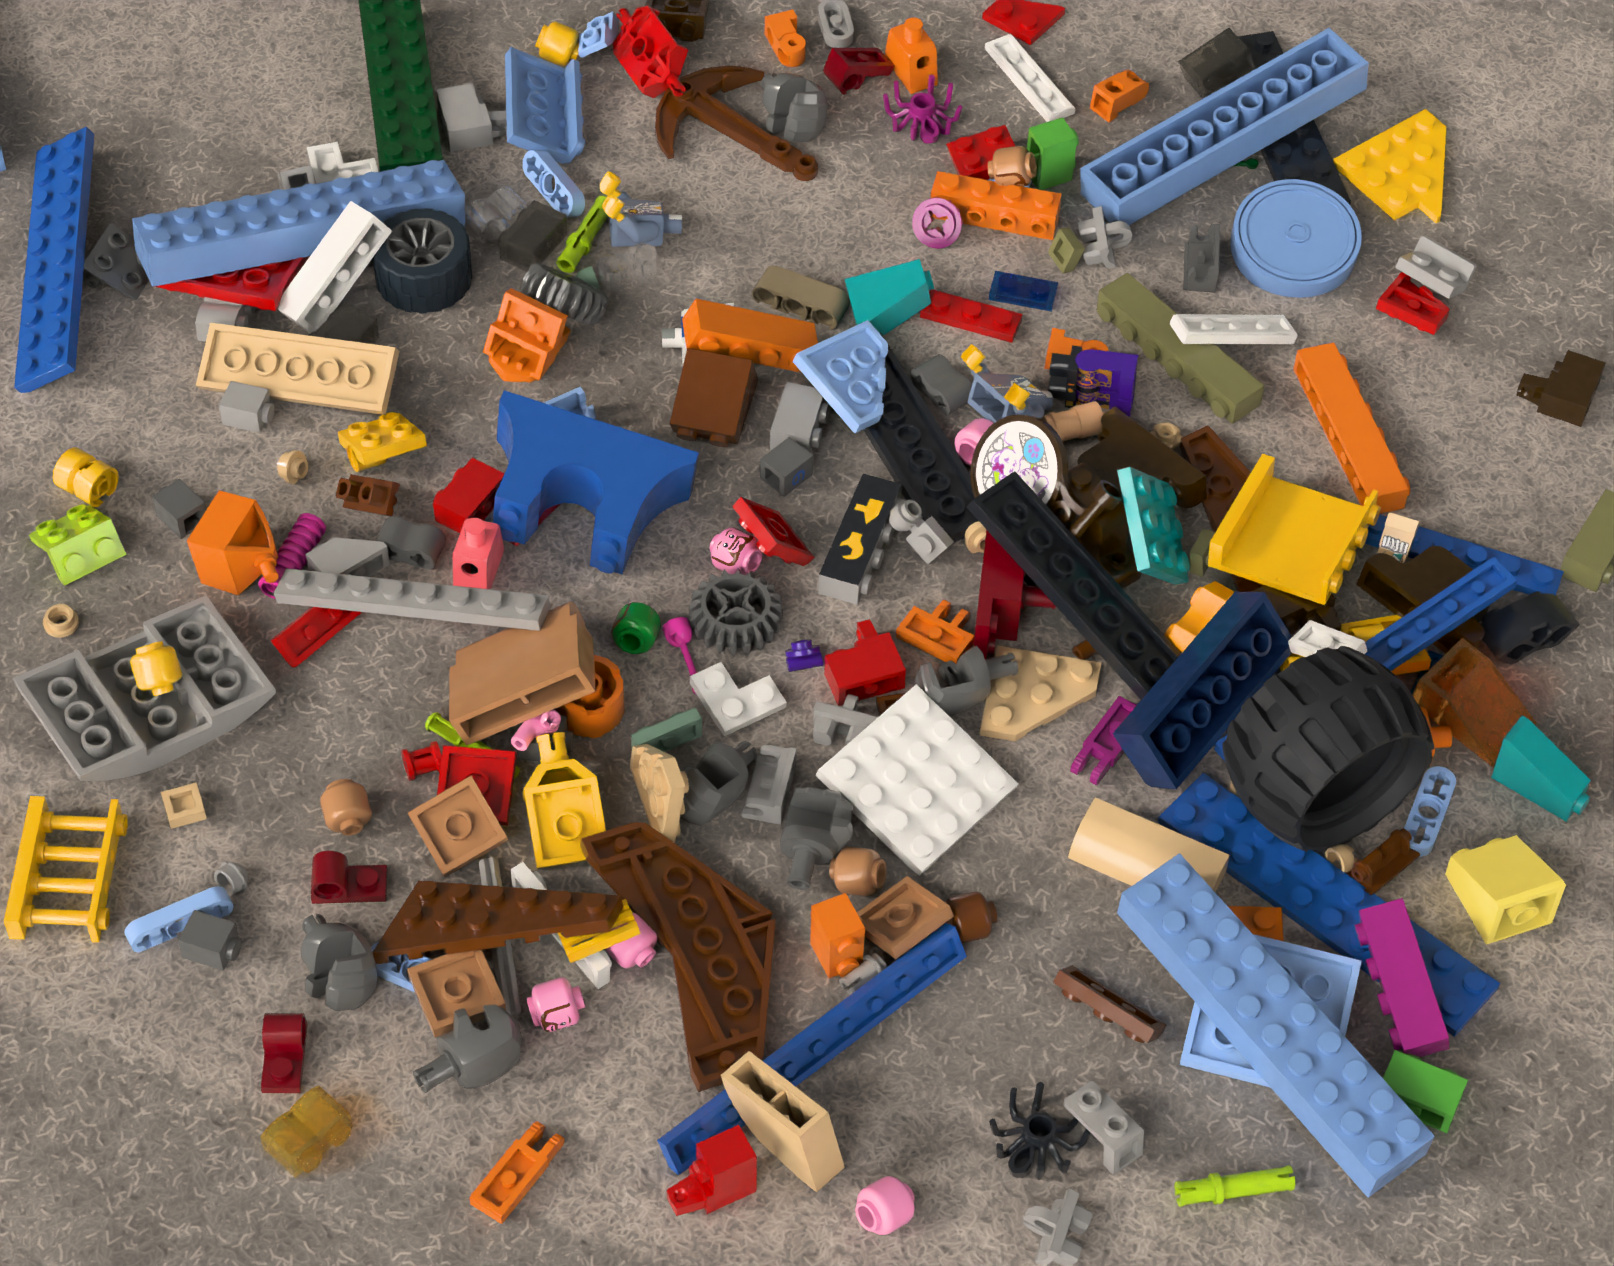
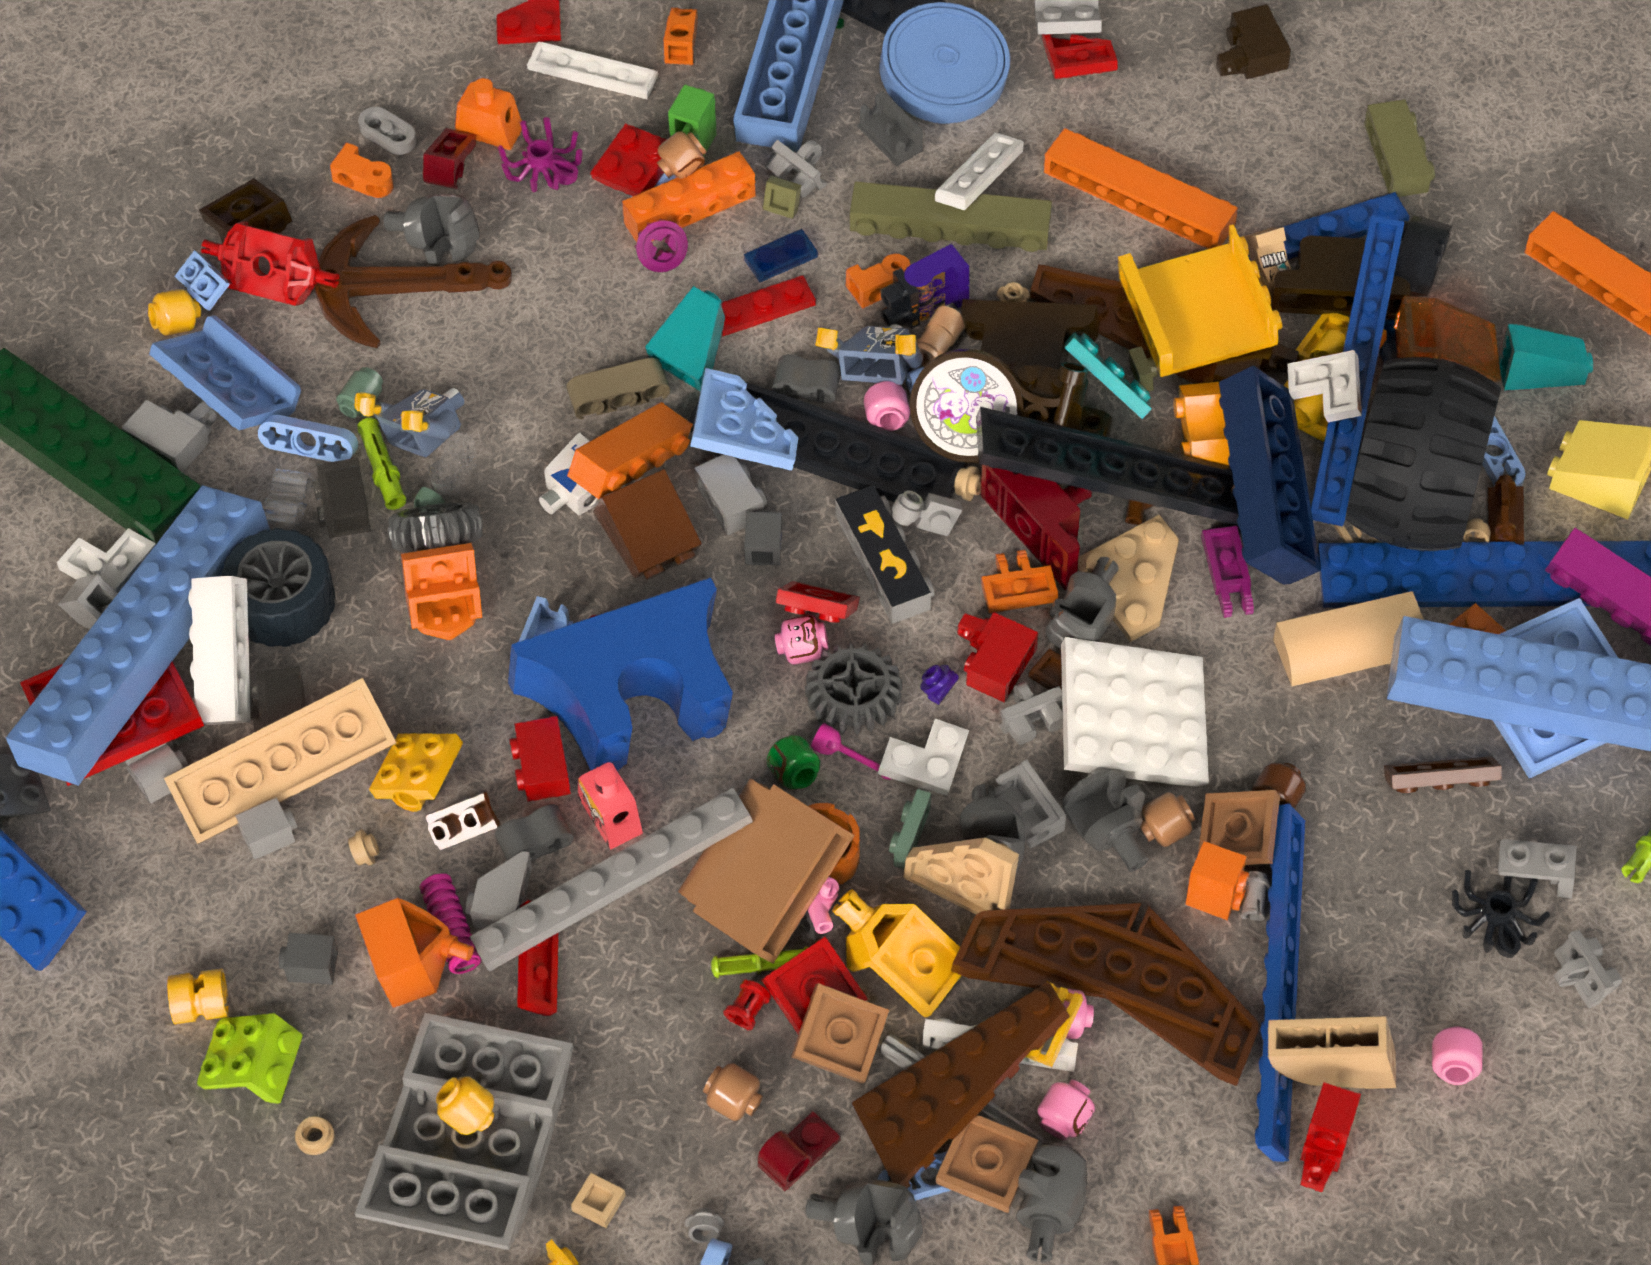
camera: 40 degrees left, 5 degrees up
(629, 172) = (362, 381): none -> sand green brick

